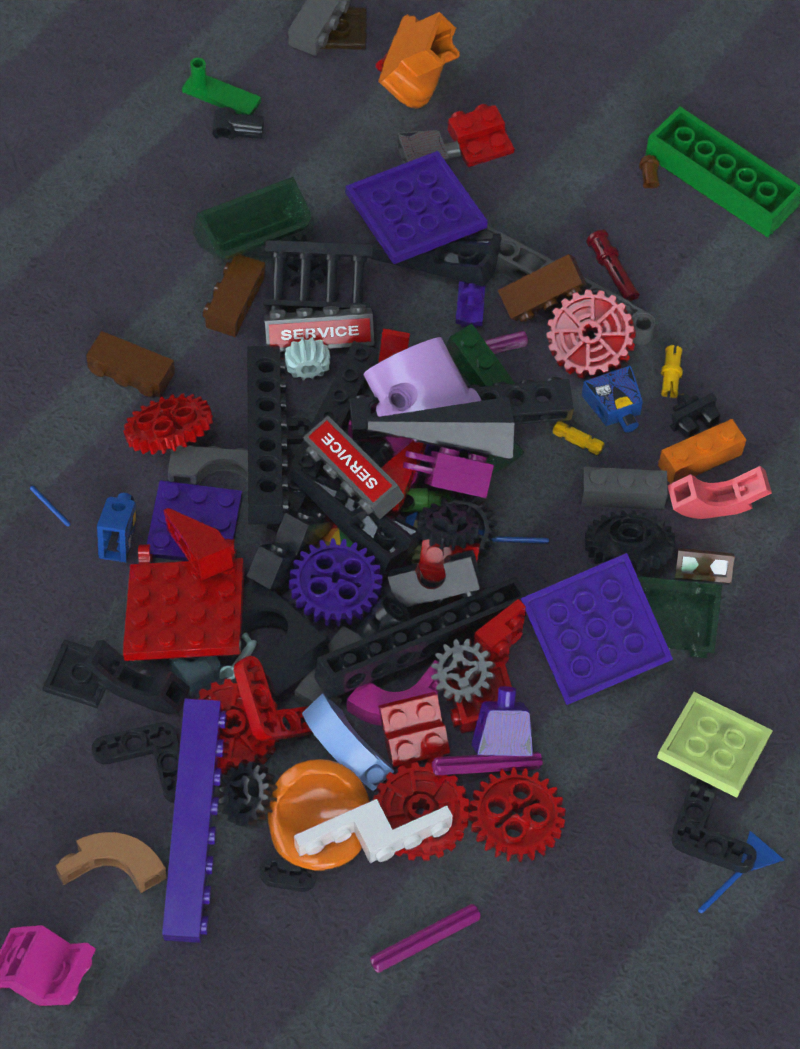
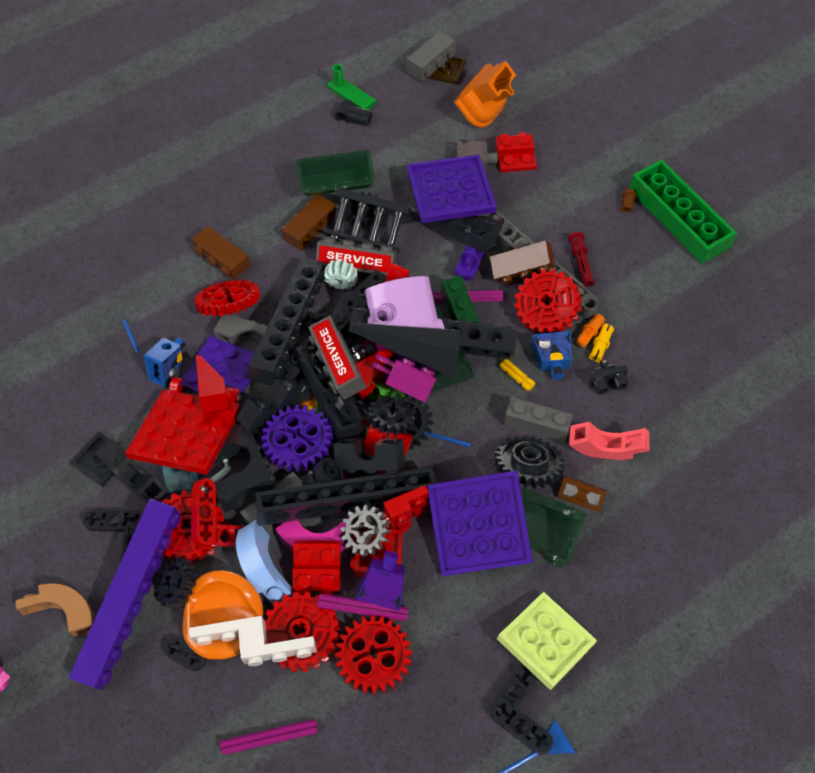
camera: 20 degrees right, 0 degrees up
(653, 358) = (590, 330): none -> orange axle
(702, 451) = (606, 406): orange brick -> none

